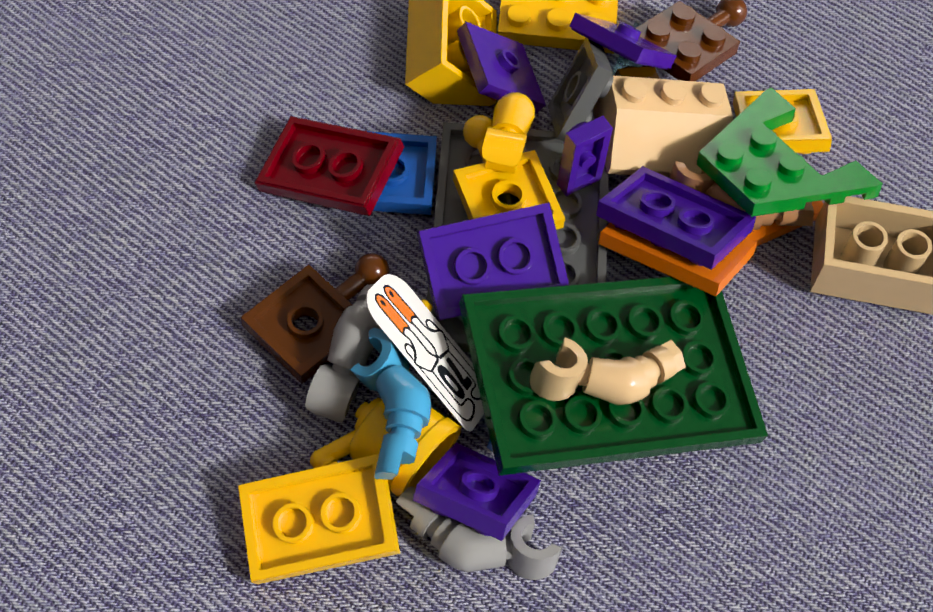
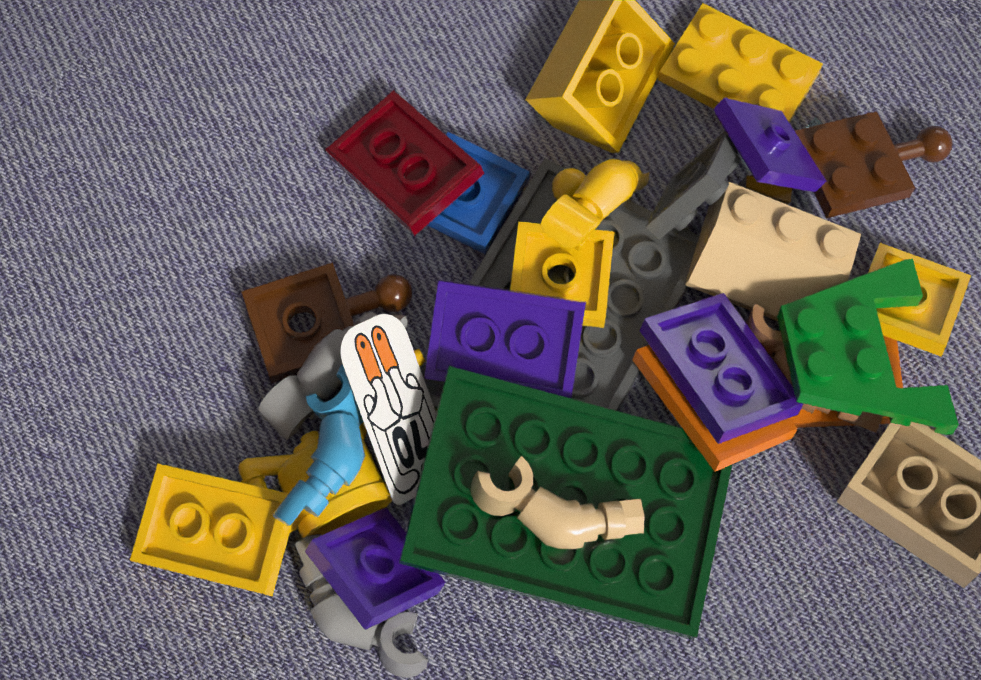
camera: 30 degrees right, 10 degrees up
(499, 65) = (634, 118): dark purple plate -> none
(584, 155) = (655, 261): dark purple plate -> none

